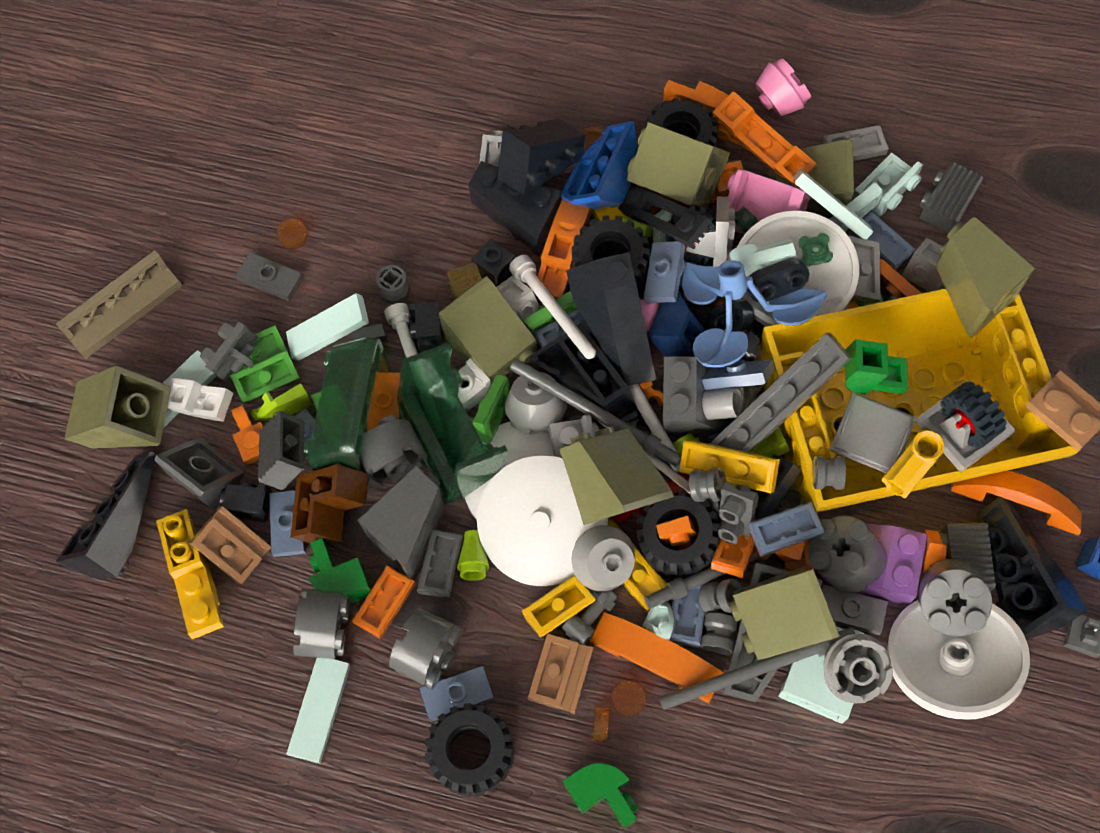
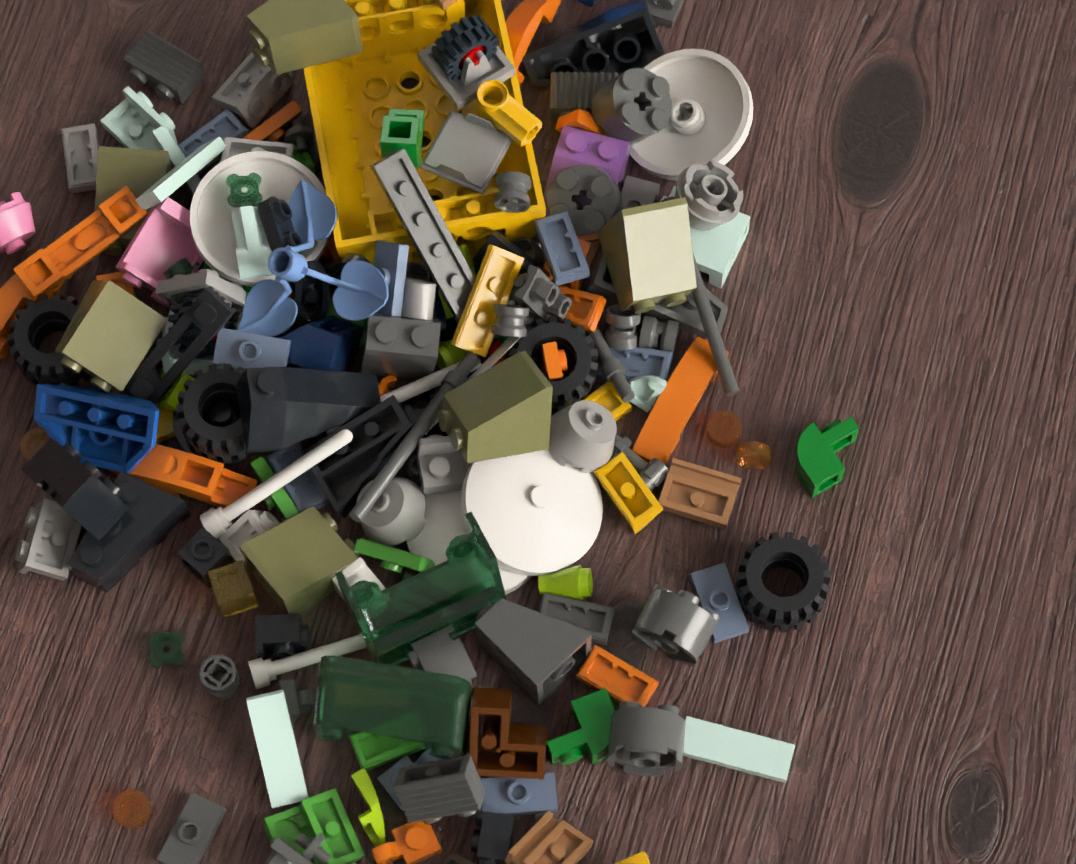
camera: 90 degrees left, 0 degrees up
(420, 238) = (160, 640): none -> clear green plate

